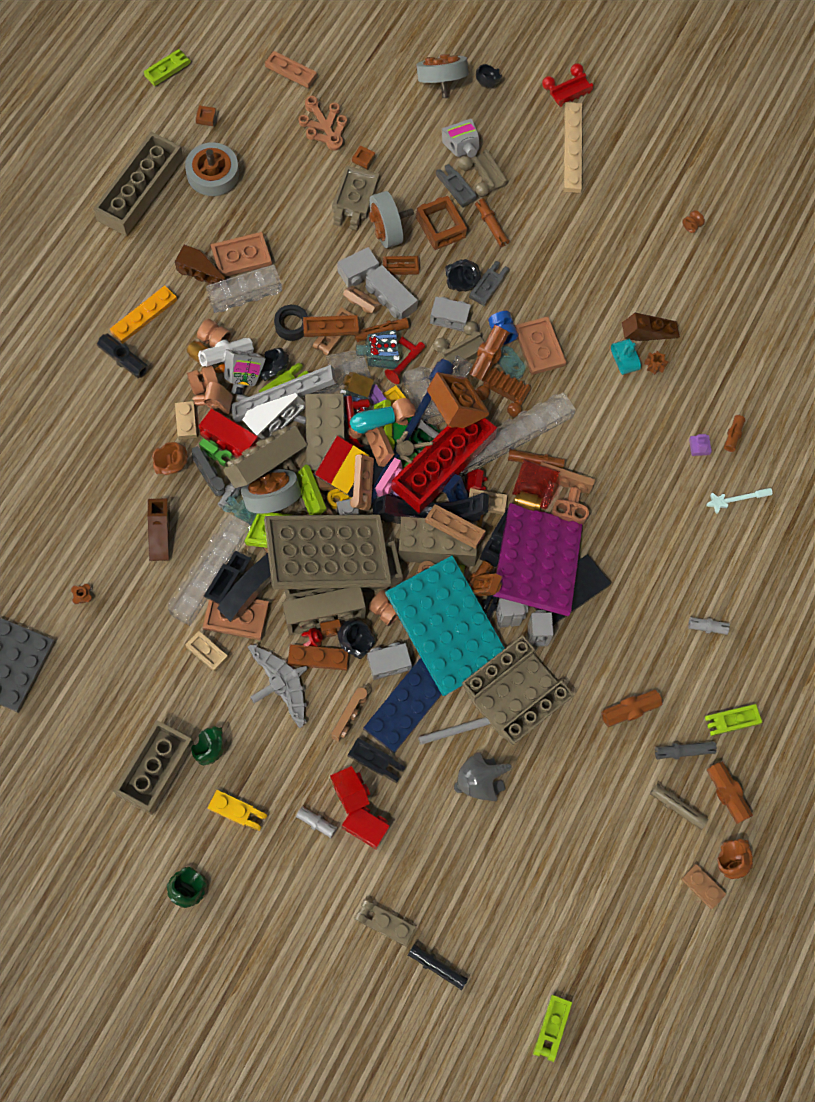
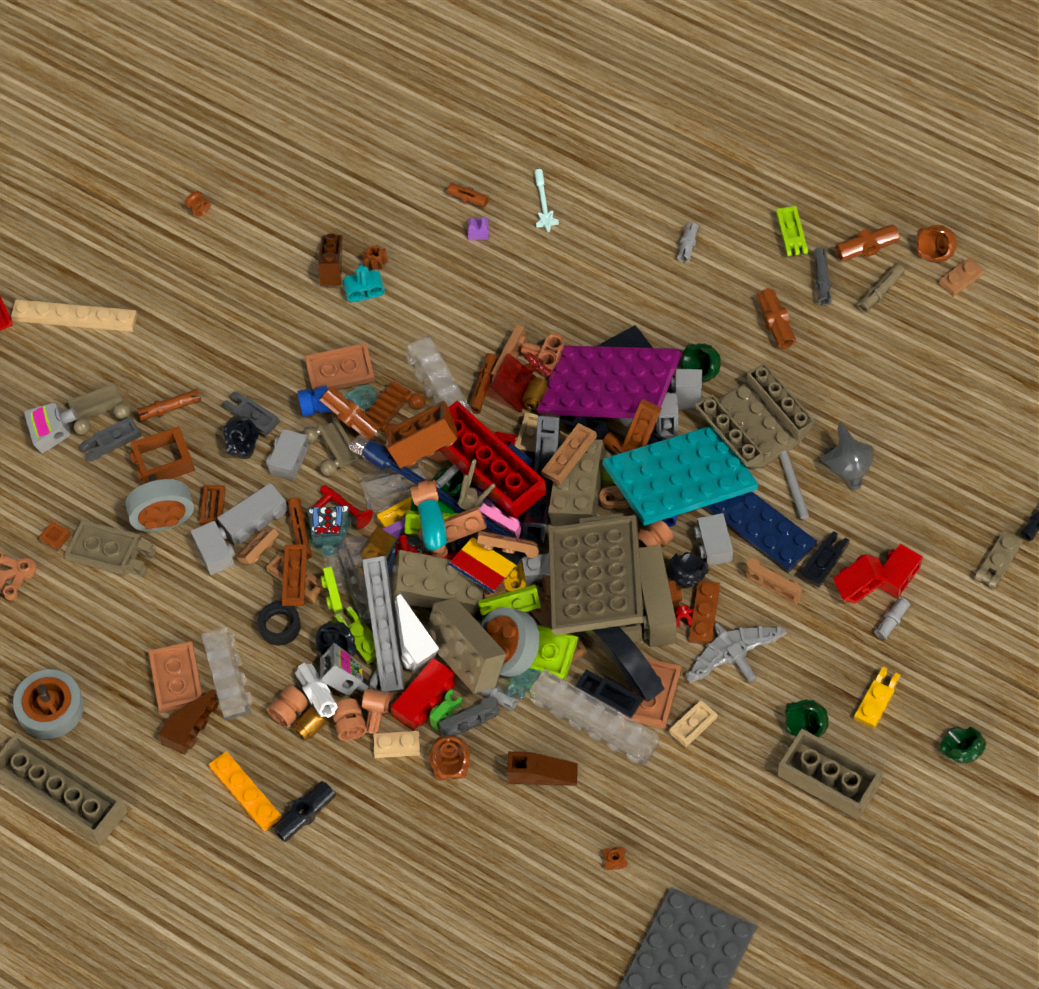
camera: 75 degrees left, 10 degrees down
(320, 357) = (328, 581): none -> lime plate
(574, 641) = (703, 358): none -> dark green hair

